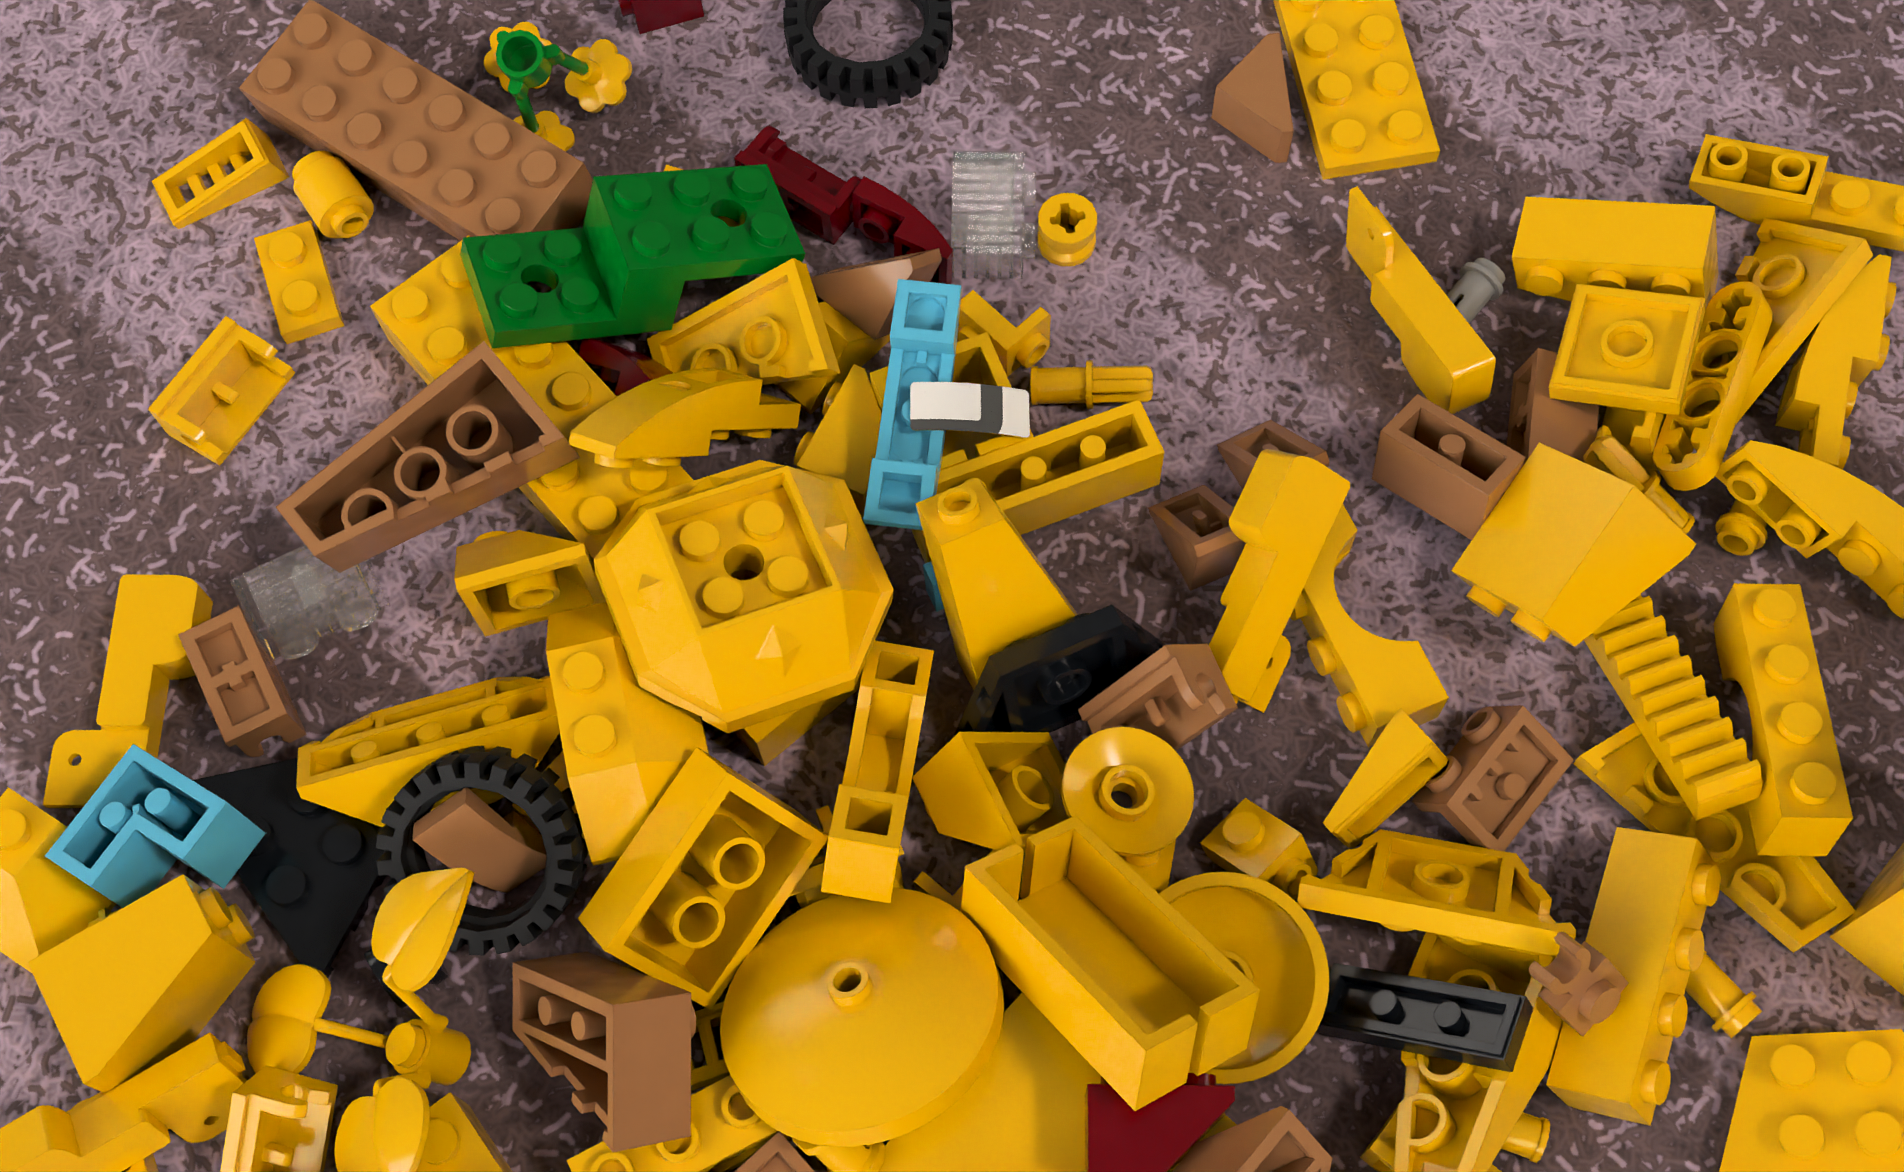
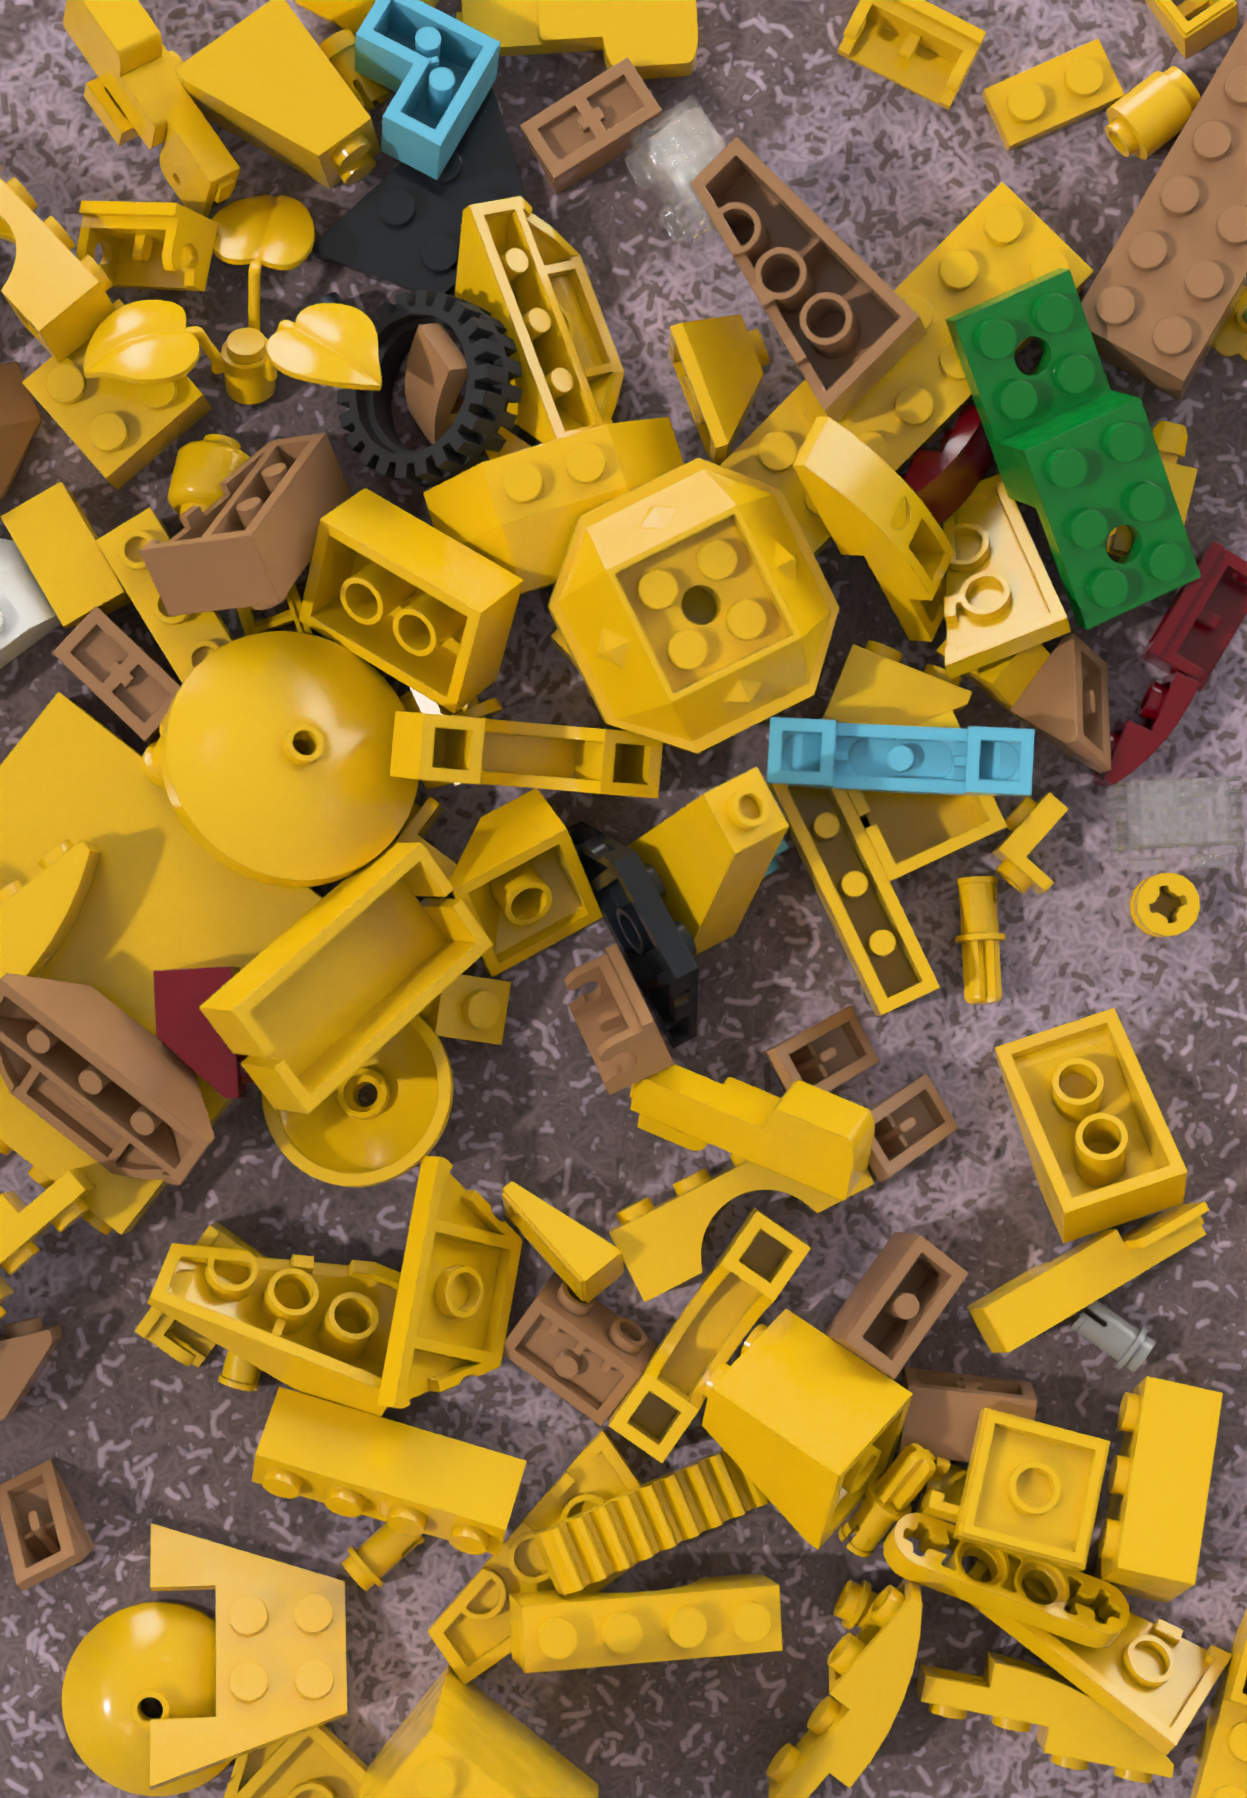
camera: 85 degrees right, 20 degrees up
(540, 1108) = (200, 470): none -> yellow head
(969, 408) = (907, 814): white sticker -> none
(1142, 768) = (539, 1025): yellow dish -> none
(1260, 846) = (488, 1125): yellow bracket -> none
(1272, 298) = (1091, 1126): none -> yellow slope
(1417, 600) = (708, 1333): none -> yellow arch
(1426, 1016) = (330, 1274): black tile -> none
(1579, 984) = (355, 1413): medium nougat plate -> none

